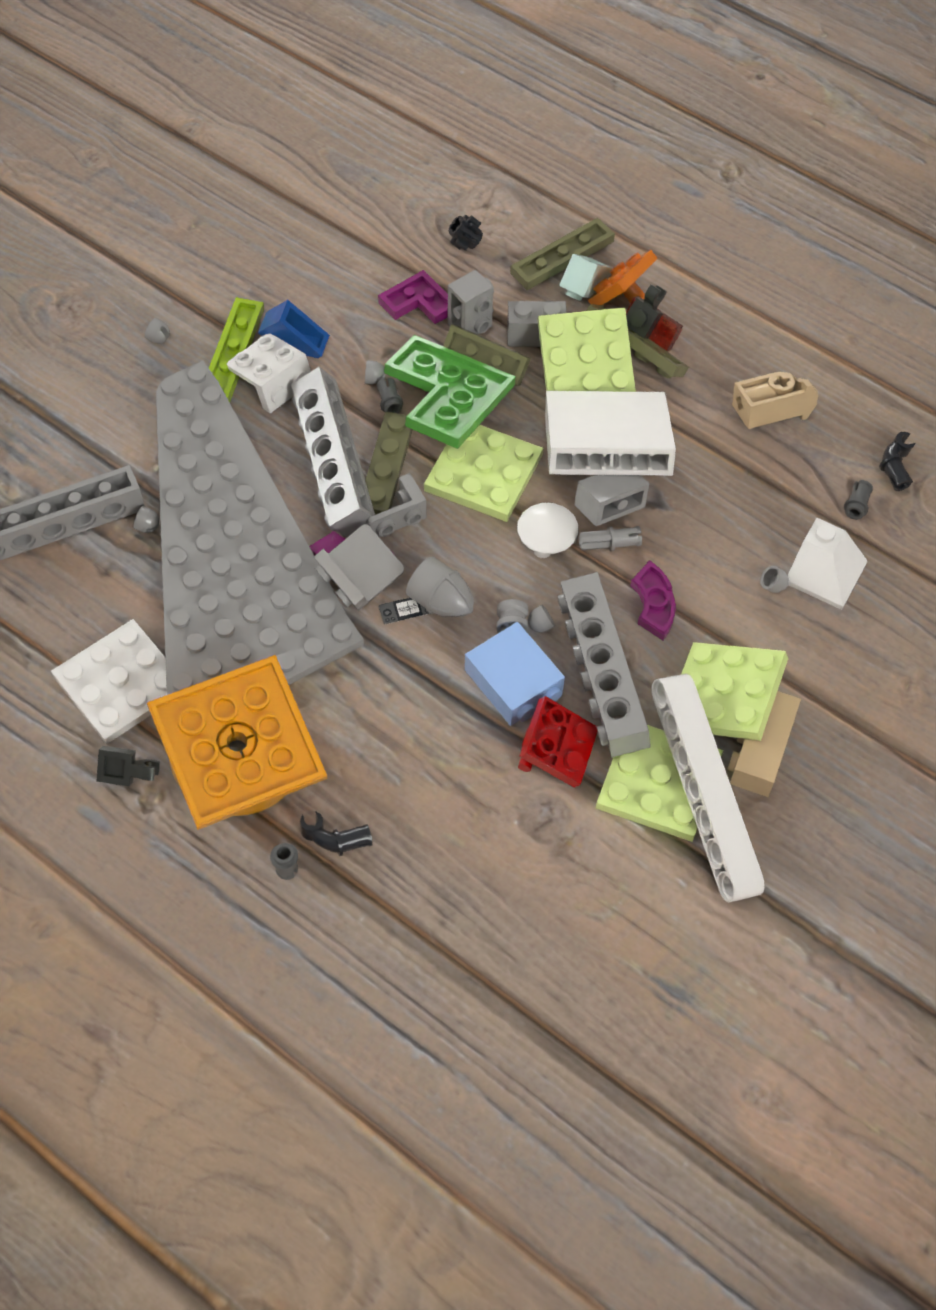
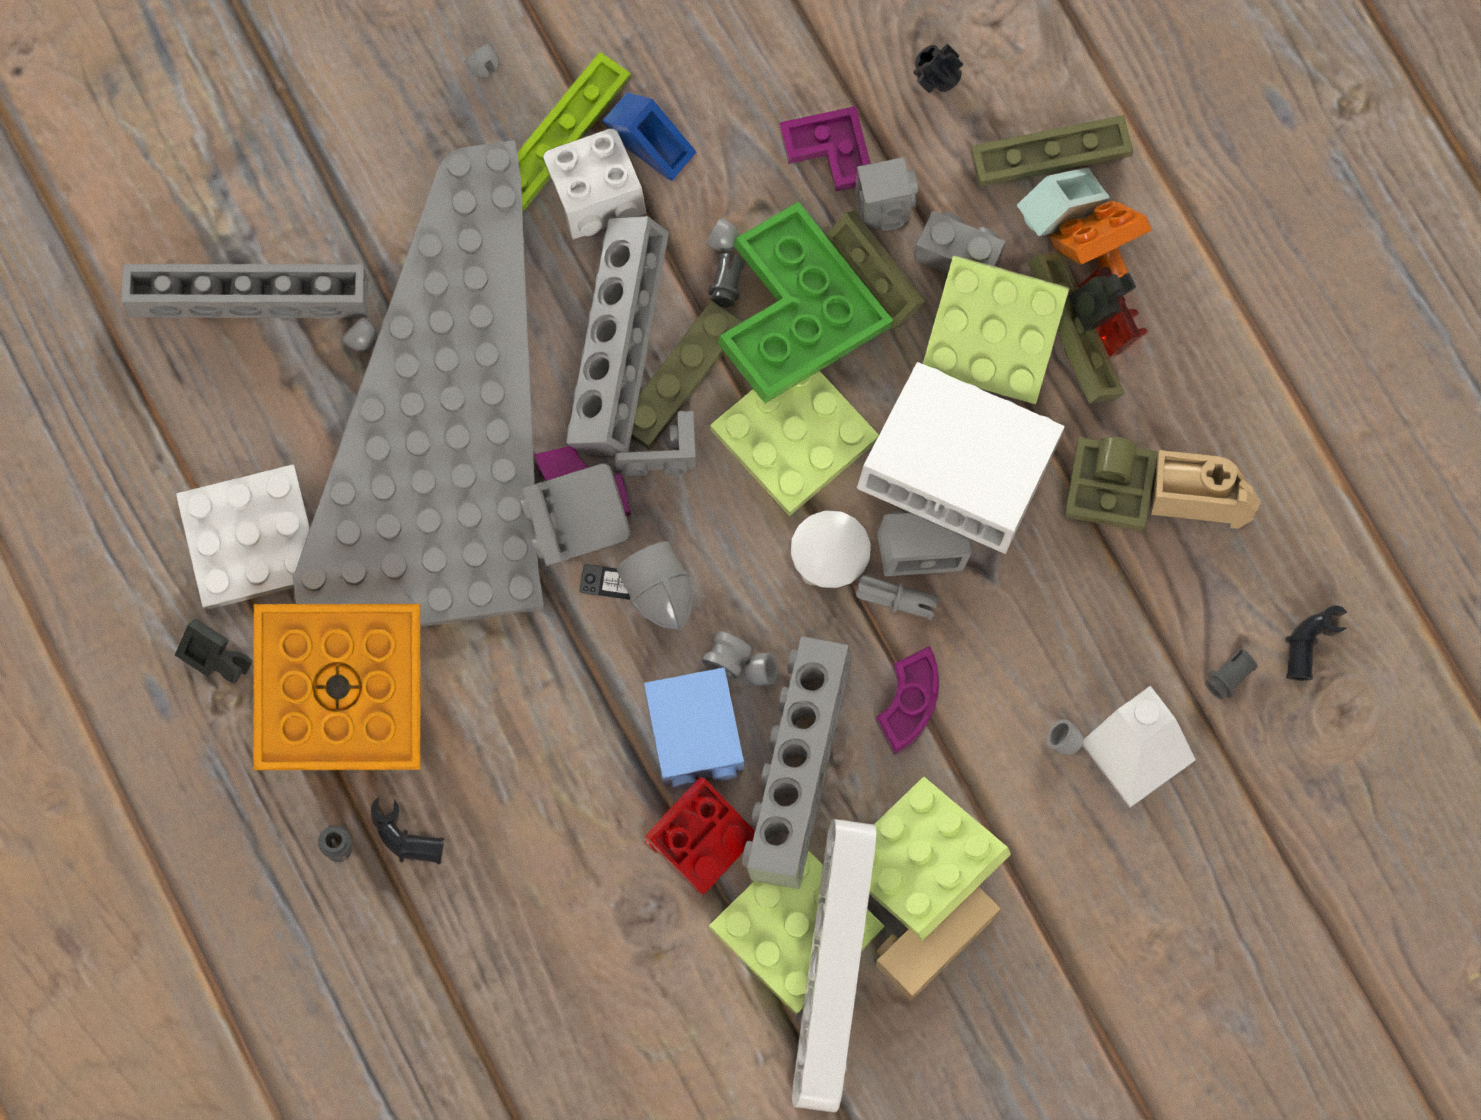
camera: 25 degrees right, 15 degrees up
(712, 418) = (1111, 483): none -> olive plate

